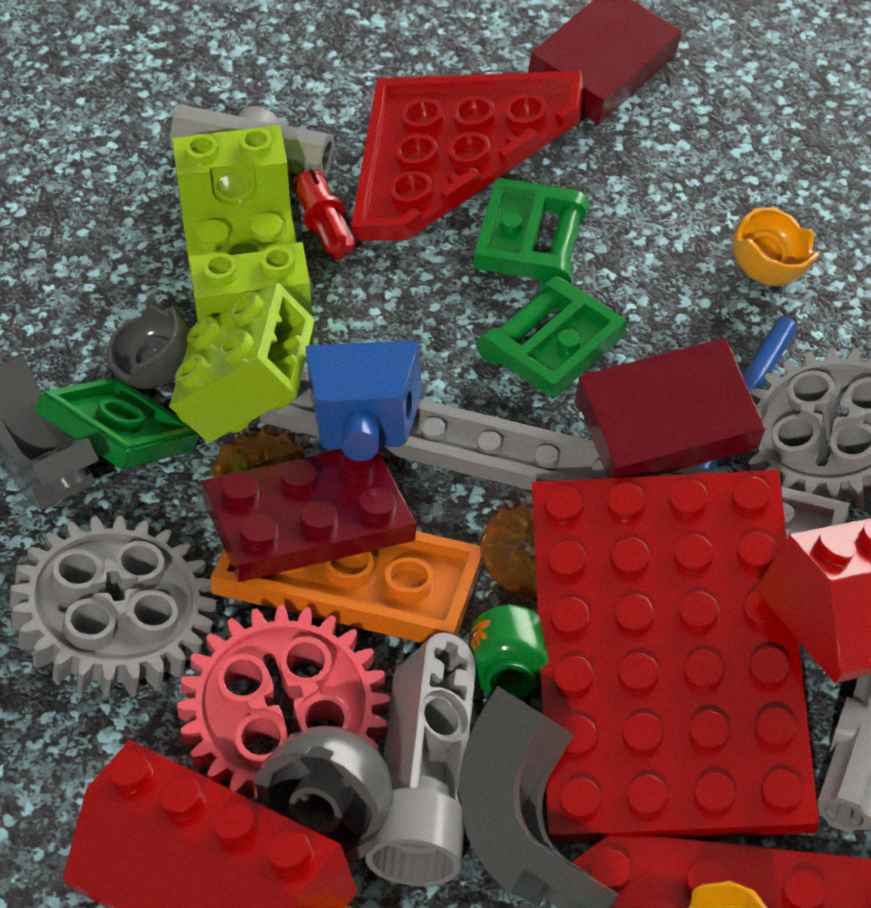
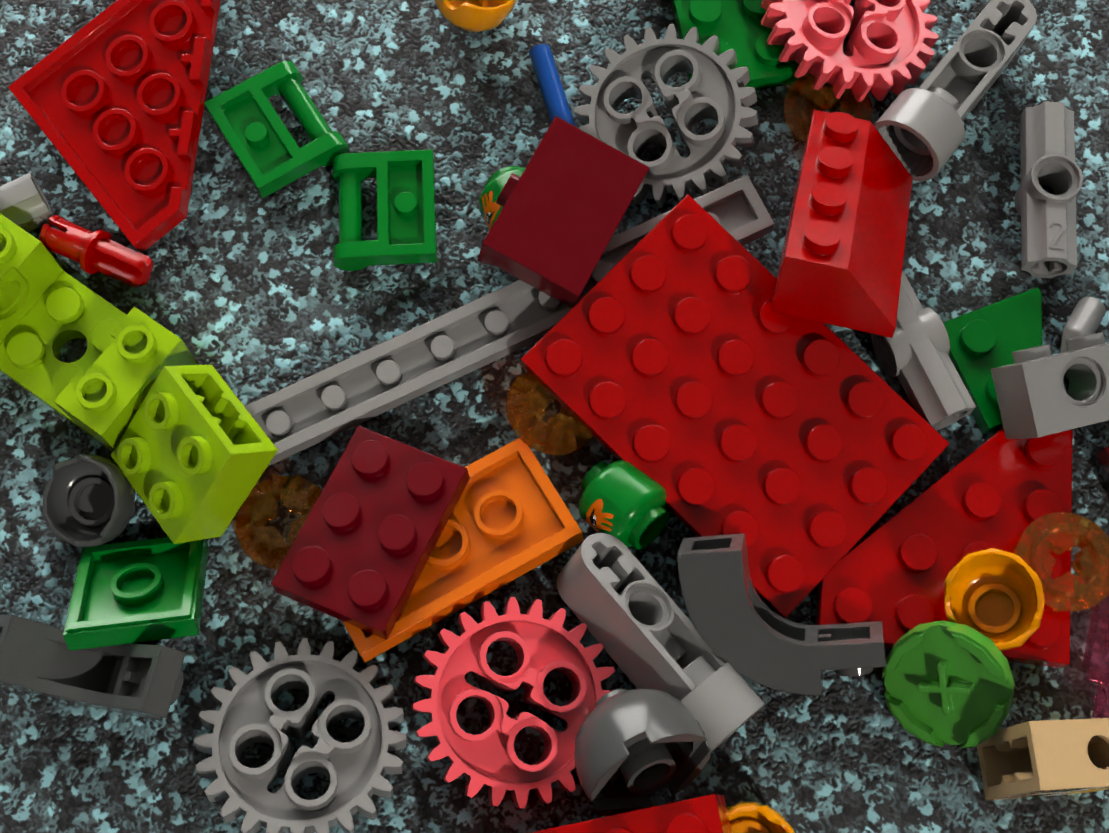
camera: 45 degrees left, 20 degrees up
(364, 394) = (323, 401): blue torso -> none

